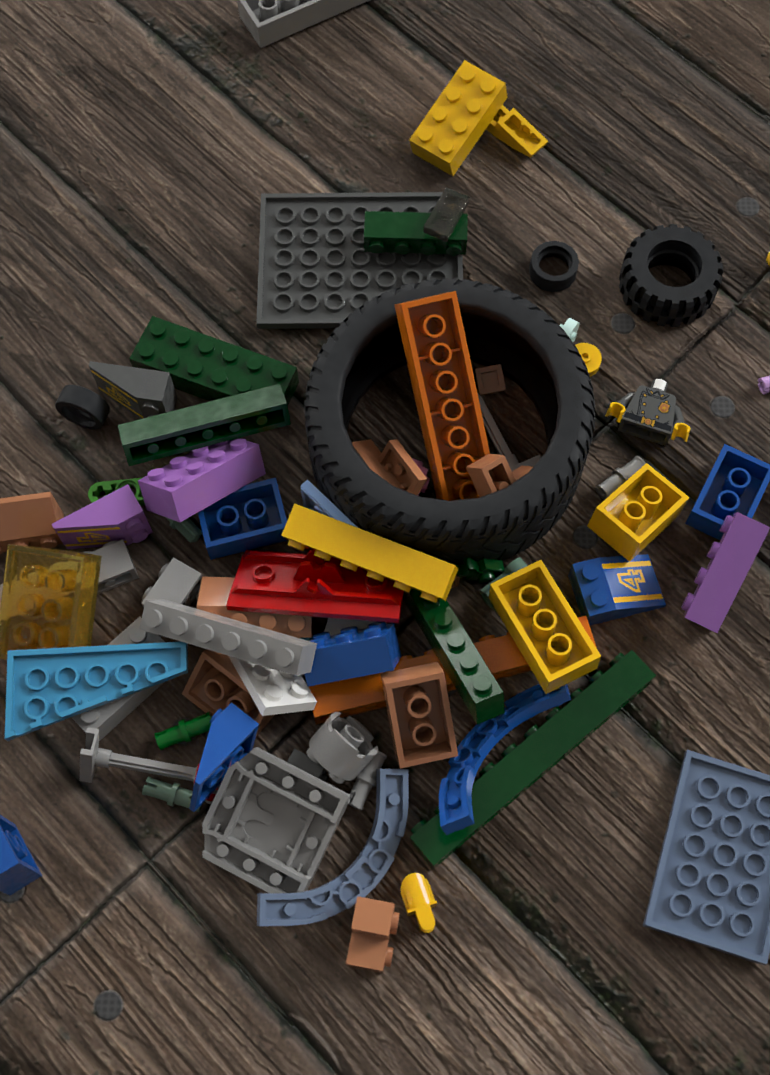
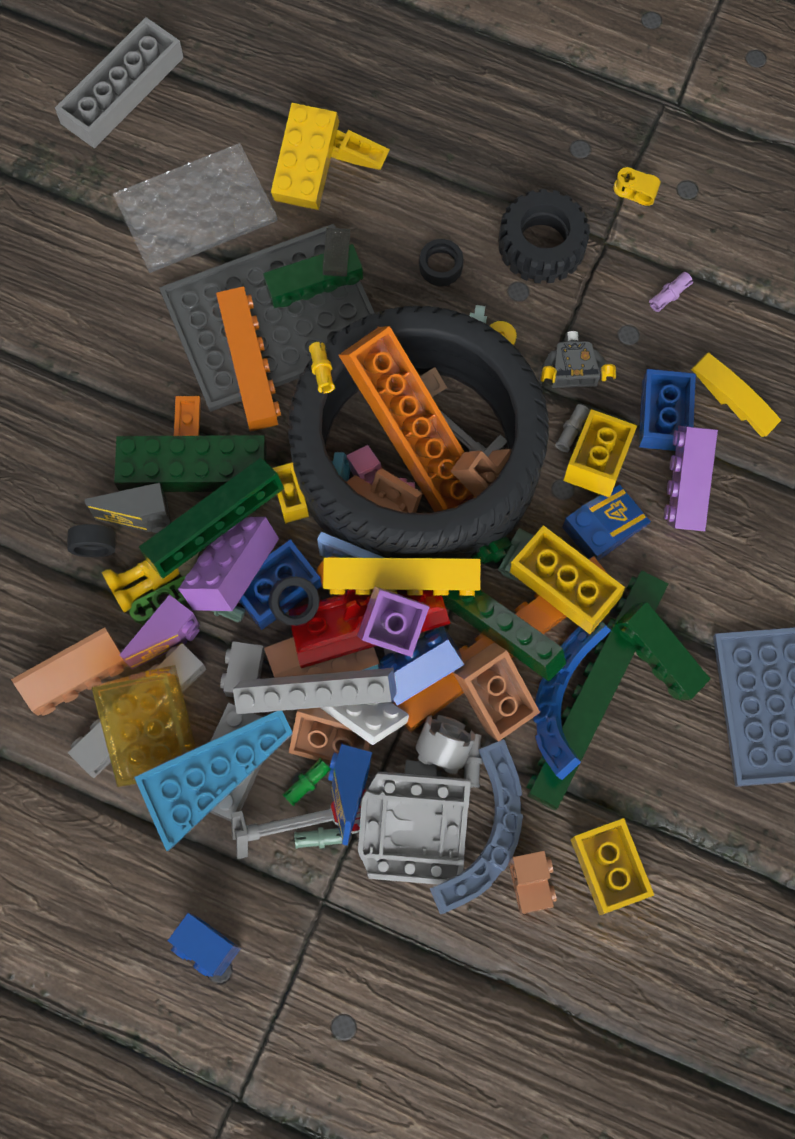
camera: 25 degrees left, 5 degrees up
(90, 457) = (126, 597): none -> yellow piece
(233, 323) = (187, 416): none -> orange plate
(243, 517) = (313, 603): none -> black tyre
(294, 437) = (291, 498): none -> yellow brick
(314, 287) = (247, 358): none -> orange brick
(331, 132) = (195, 207): none -> clear plate
(335, 594) = (393, 621): none -> medium lavender brick
(361, 427) = (341, 465): none -> medium azure plate
(371, 310) = (321, 367): none -> yellow pin
(385, 429) = (364, 464): none -> bright pink brick
(419, 900) = (556, 840): yellow arm -> none
(466, 955) = (612, 866): none -> yellow brick
(618, 745) = (662, 651): none -> dark green brick

